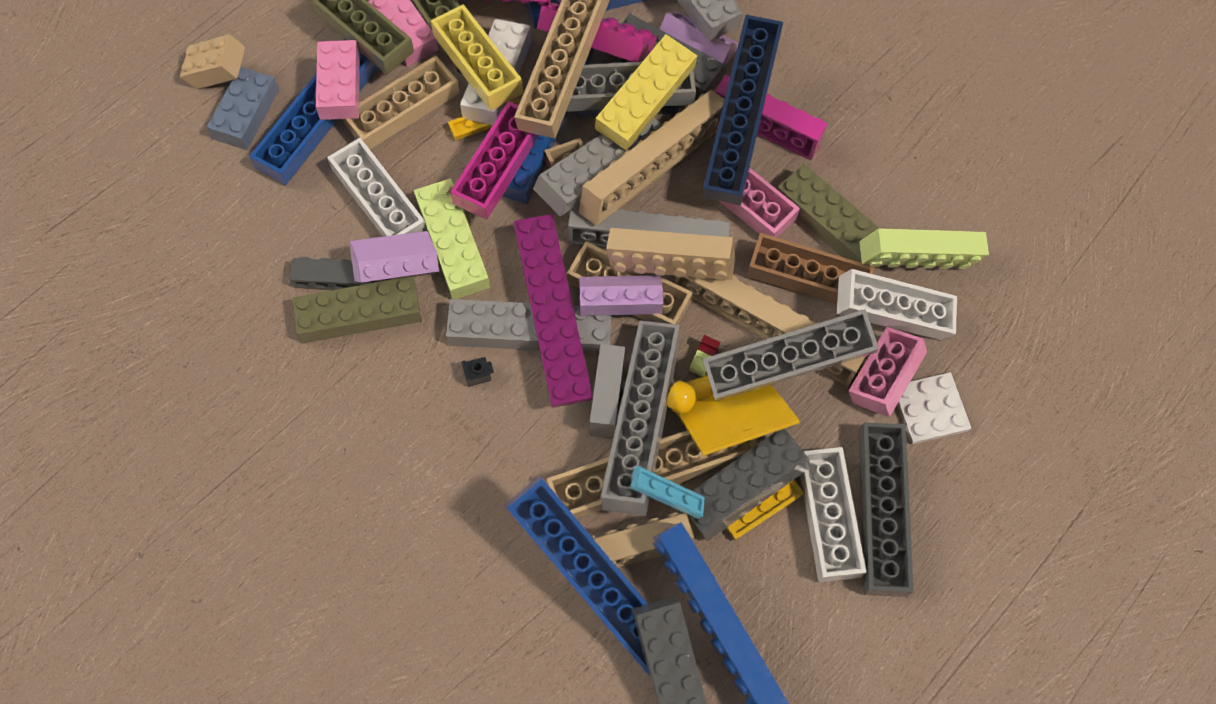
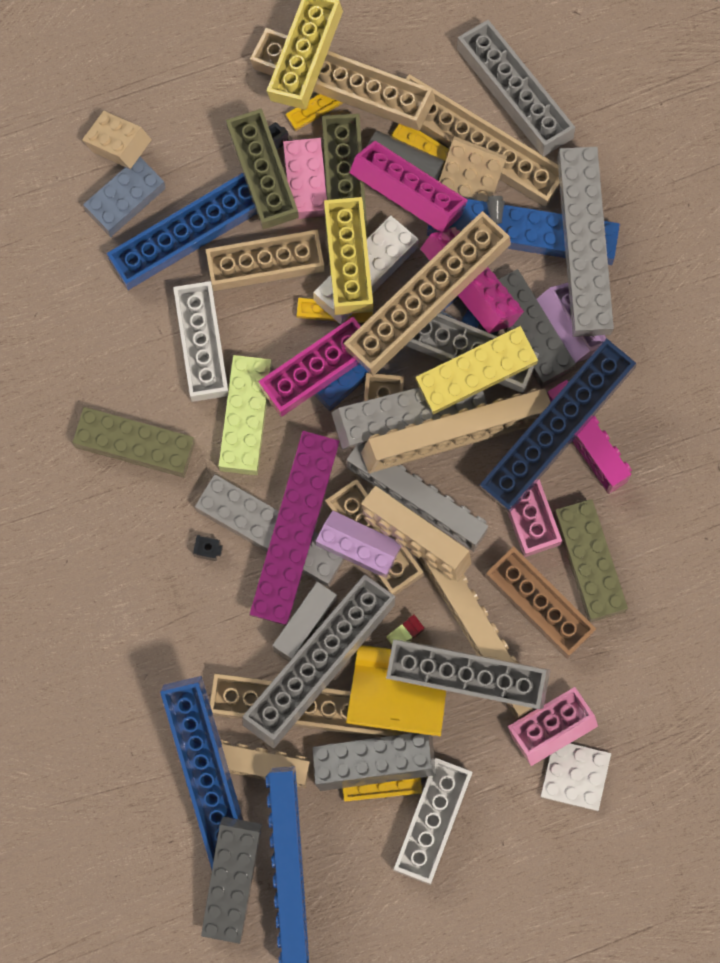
camera: 30 degrees right, 10 degrees up
(323, 274) = (128, 399): dark grey brick -> none
(337, 79) = (216, 216): bright pink brick -> none
(393, 256) = (184, 412): lavender slope -> none
(667, 492) = (300, 739): medium azure tile -> none
(681, 397) = (361, 661): yellow hair -> none
(885, 510) = (481, 840): dark grey brick -> none
(898, 304) = (592, 673): white brick -> none
(923, 248) = (652, 636): yellowish green brick -> none

